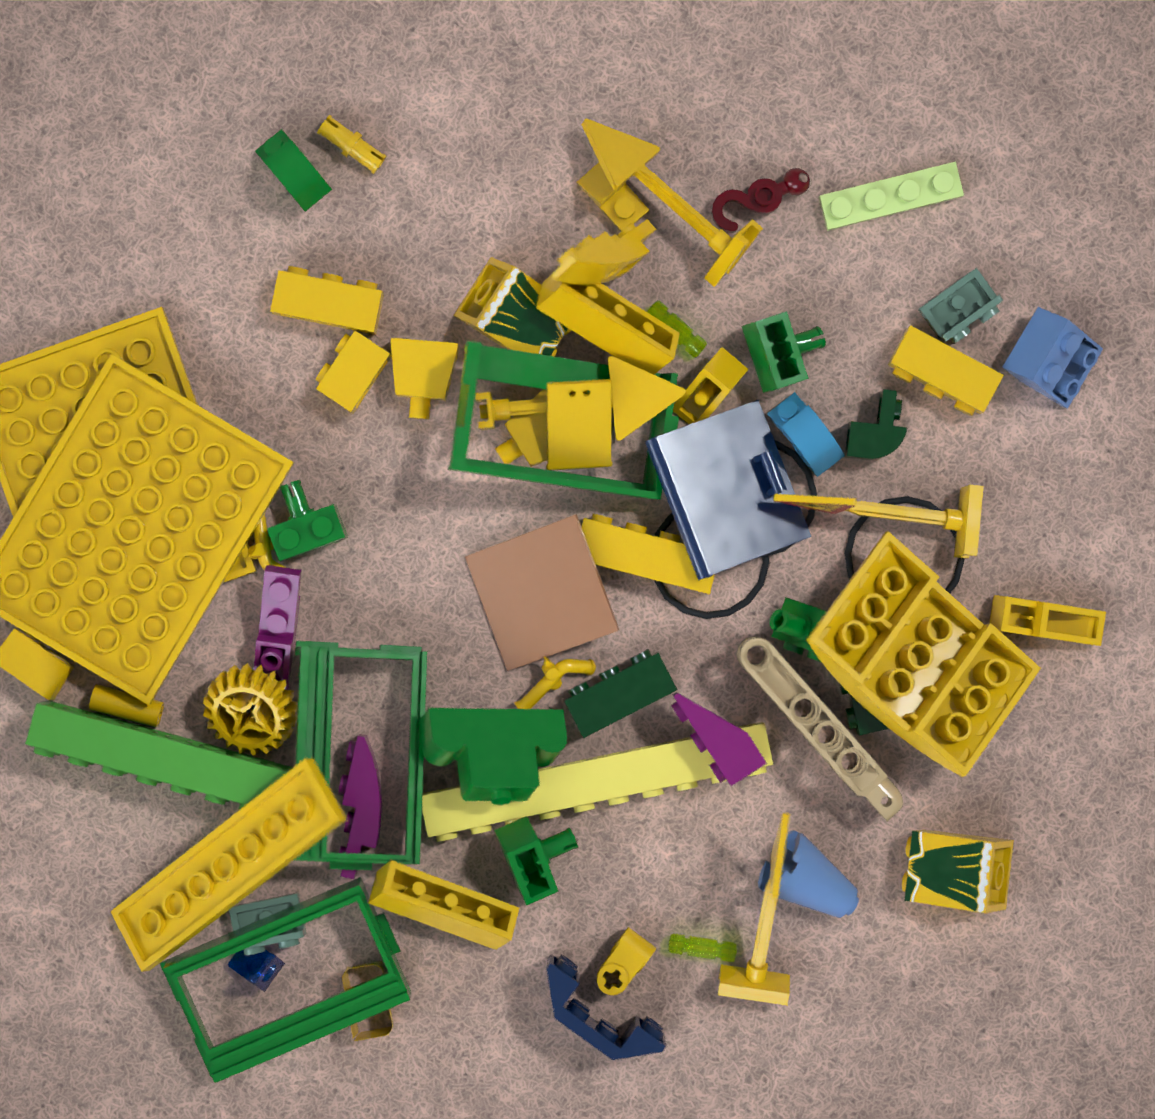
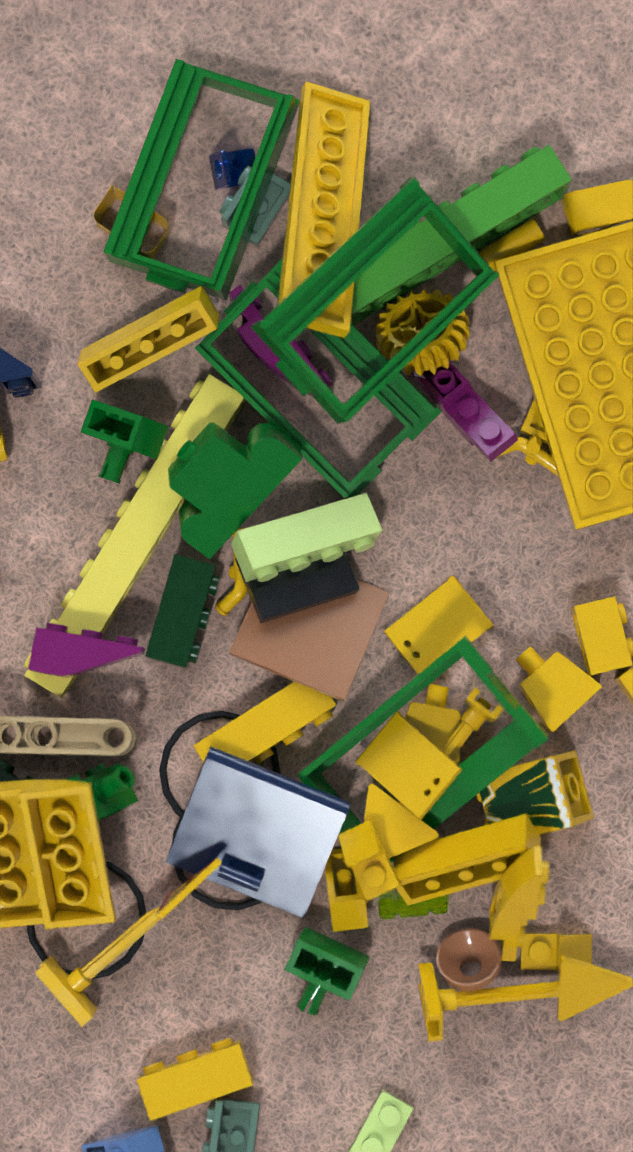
camera: 130 degrees right, 5 degrees down
(265, 804) = (341, 271): none -> green piece
(305, 528) = (519, 495): green brick -> none
(456, 498) = (437, 625): none -> yellow container
(481, 652) = (306, 537): none -> yellowish green brick
(514, 635) = (302, 589): none -> black tile
(671, 264) = (465, 947): none -> nougat piece
(674, 390) = (368, 860): none -> yellow slope
(762, 197) = (451, 1062): dark red piece -> none
(806, 434) = (244, 930): dark azure brick -> none
(877, 440) = (190, 979): dark green brick -> none

